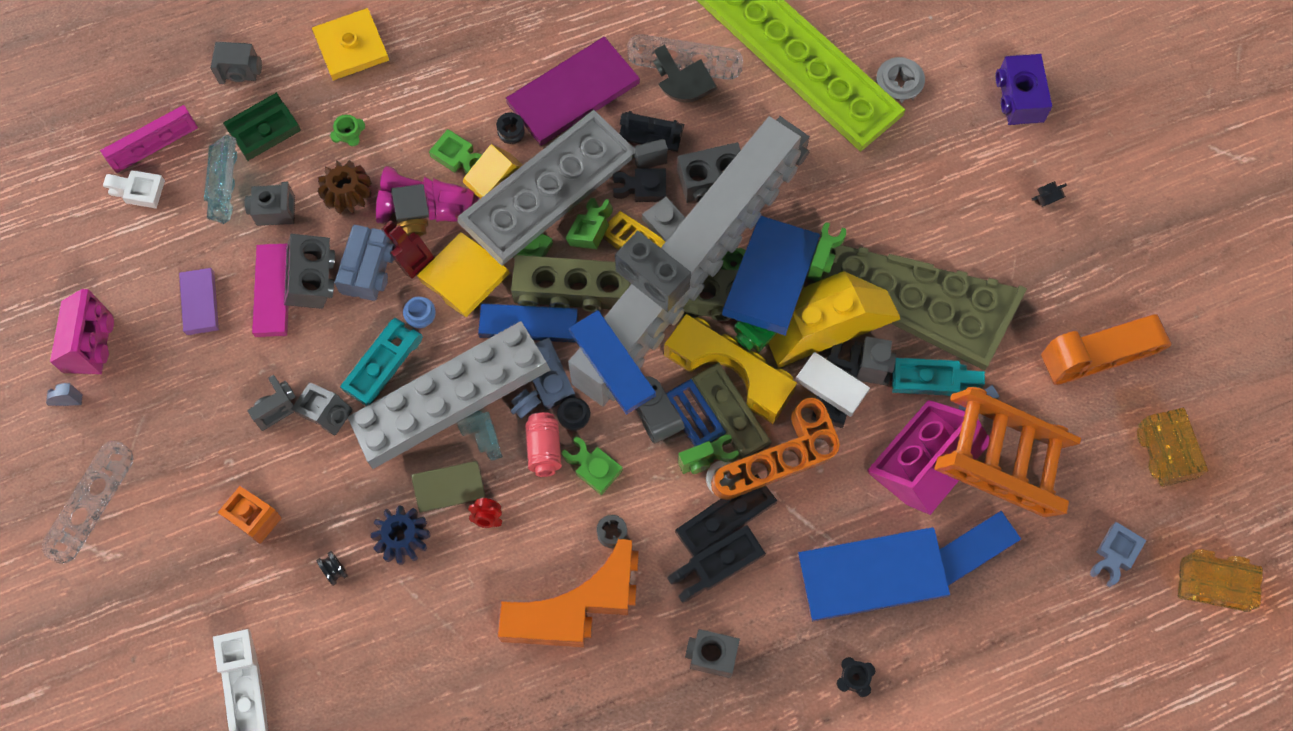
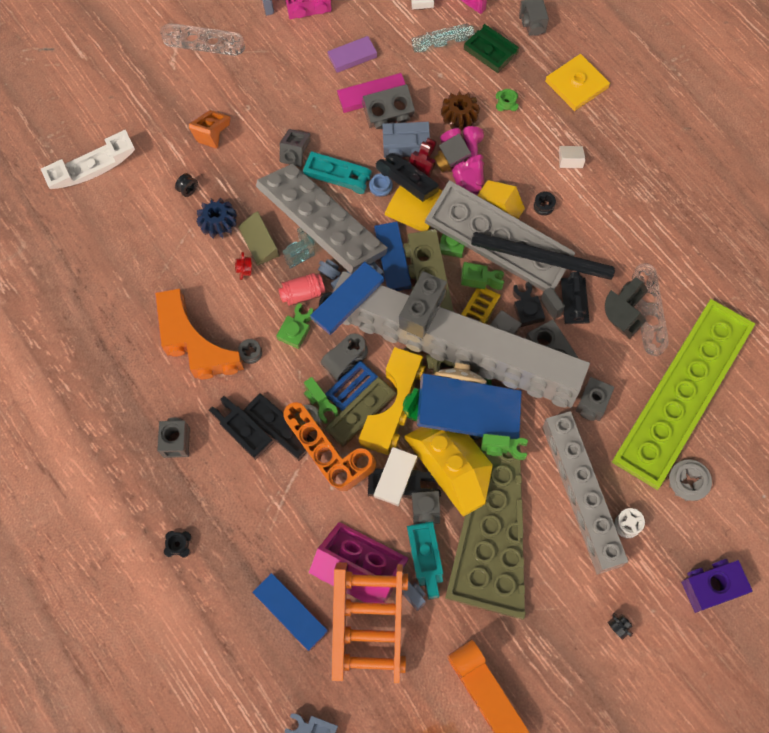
camera: 80 degrees right, 0 degrees up
(271, 204) = (432, 68): dark grey brick -> none
(273, 408) = (287, 118): dark grey bracket -> none
(424, 271) = (407, 176): none -> black hinge
(454, 152) = (511, 170): bright green plate -> none
(455, 80) = (571, 157): none -> white slope
(572, 90) = (591, 235): magenta tile -> none
(590, 145) = (543, 255): none -> black axle
(735, 266) = (461, 372): none -> tan dish
(873, 574) = (255, 541): blue tile -> none
(894, 186) = (584, 493): none -> light grey brick
(943, 147) = (634, 520): none -> white wheel

